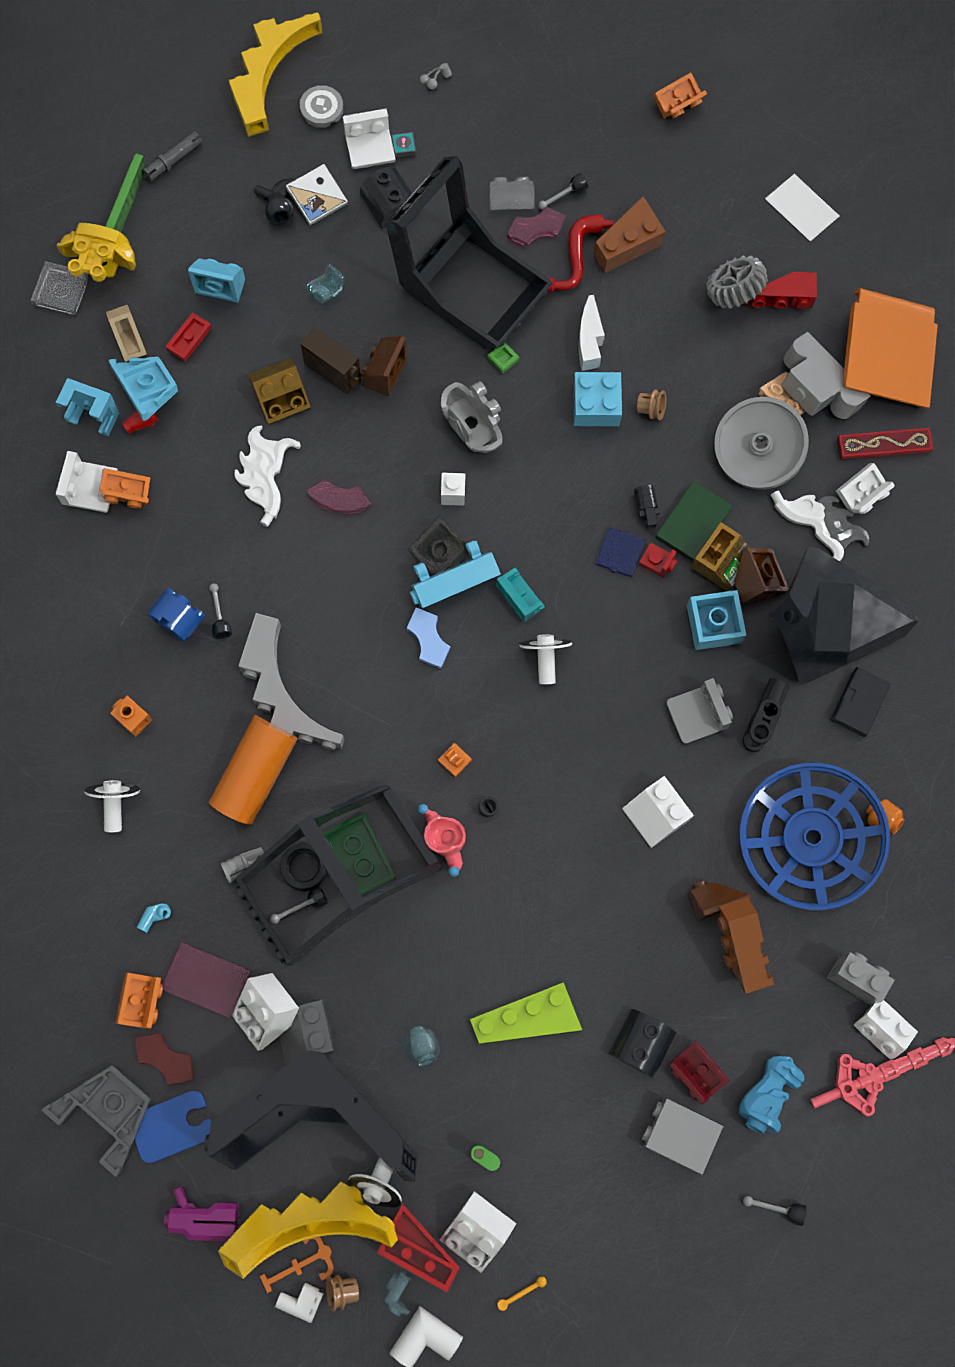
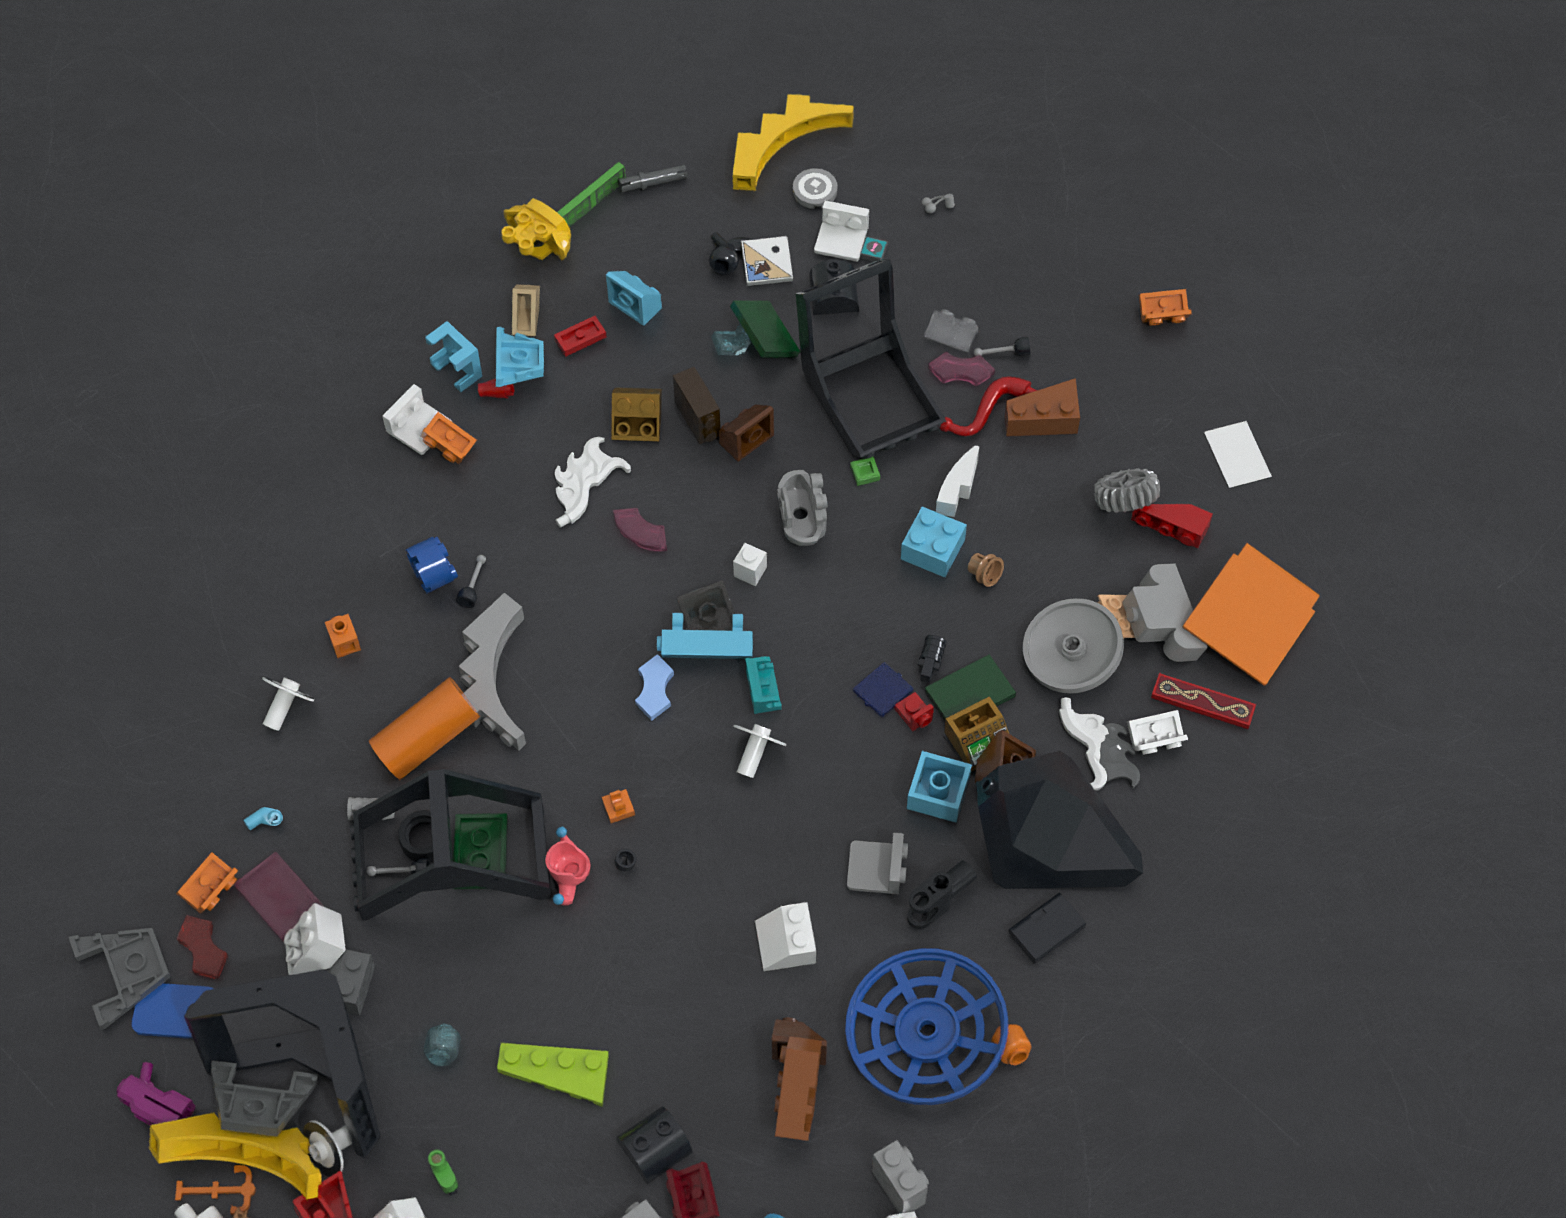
camera: 30 degrees right, 15 degrees down
(59, 289) = (487, 250): clear tile -> none
(296, 1187) = (257, 1108): none -> dark grey wing
(350, 261) = (765, 329): none -> dark green tile

